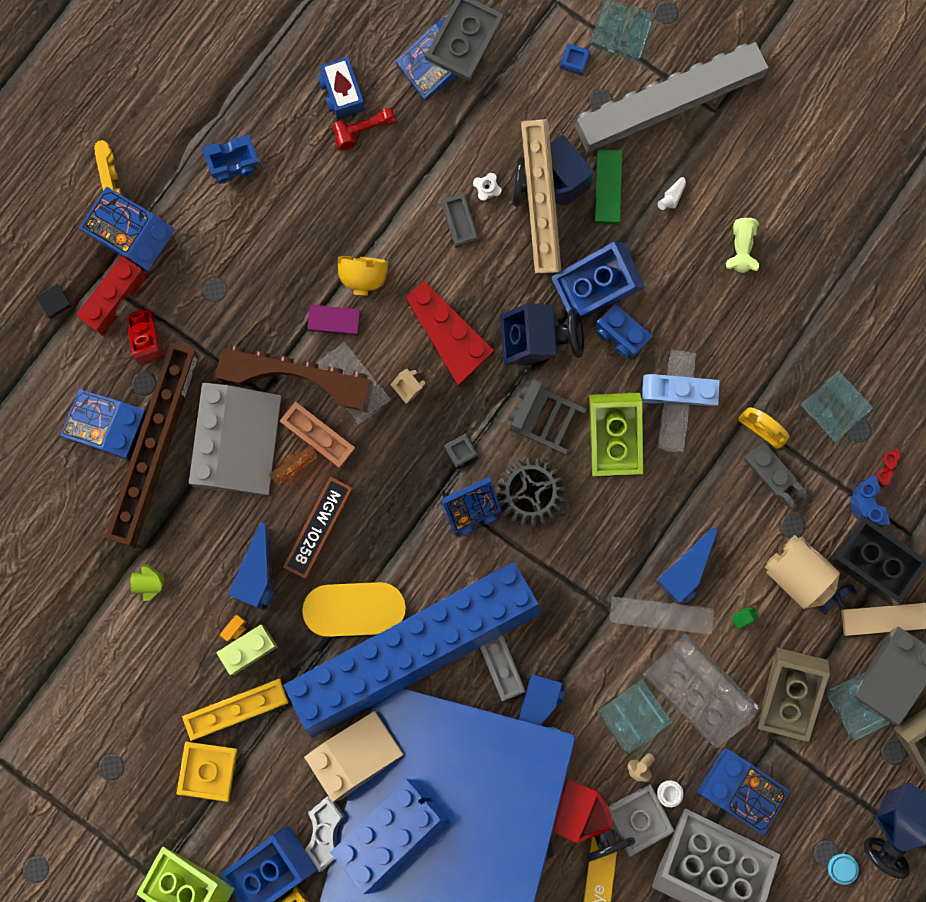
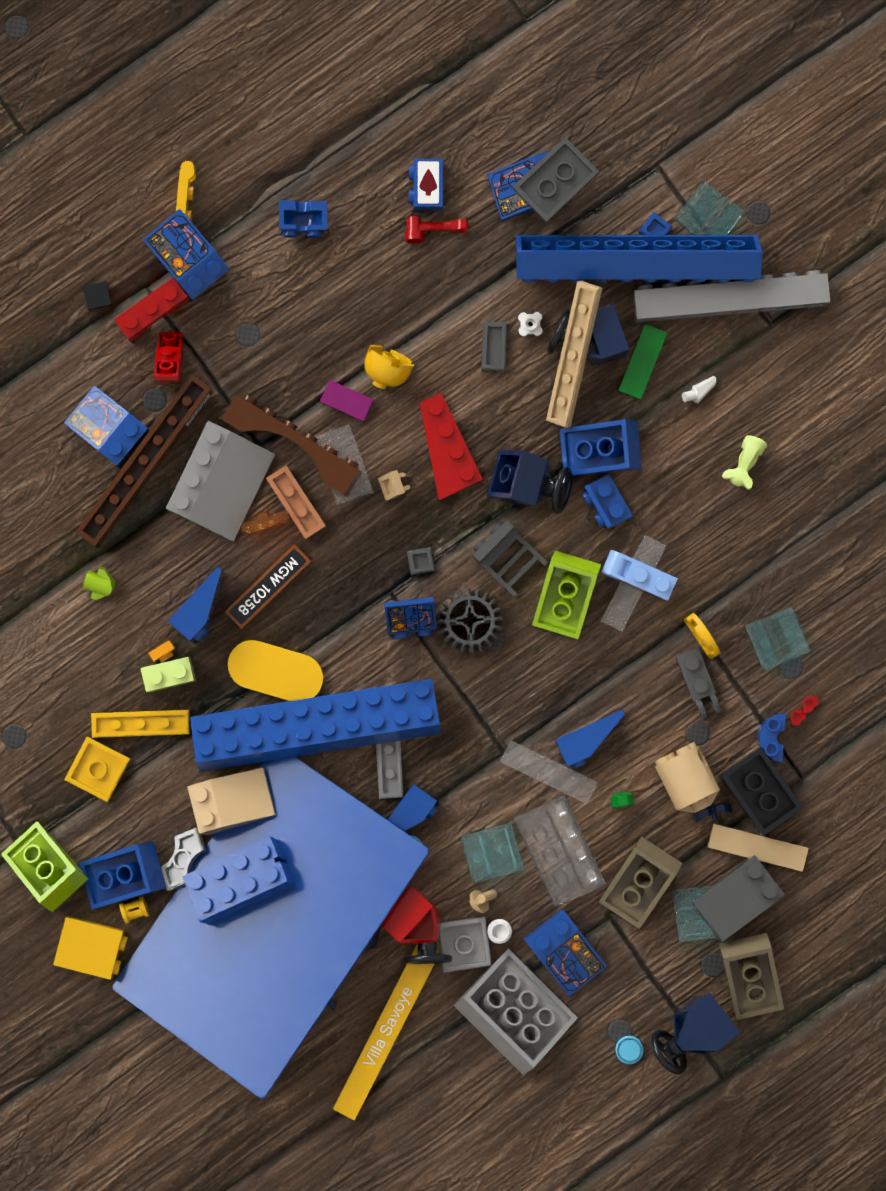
camera: 20 degrees right, 5 degrees up
(570, 86) = (638, 257): none -> blue brick

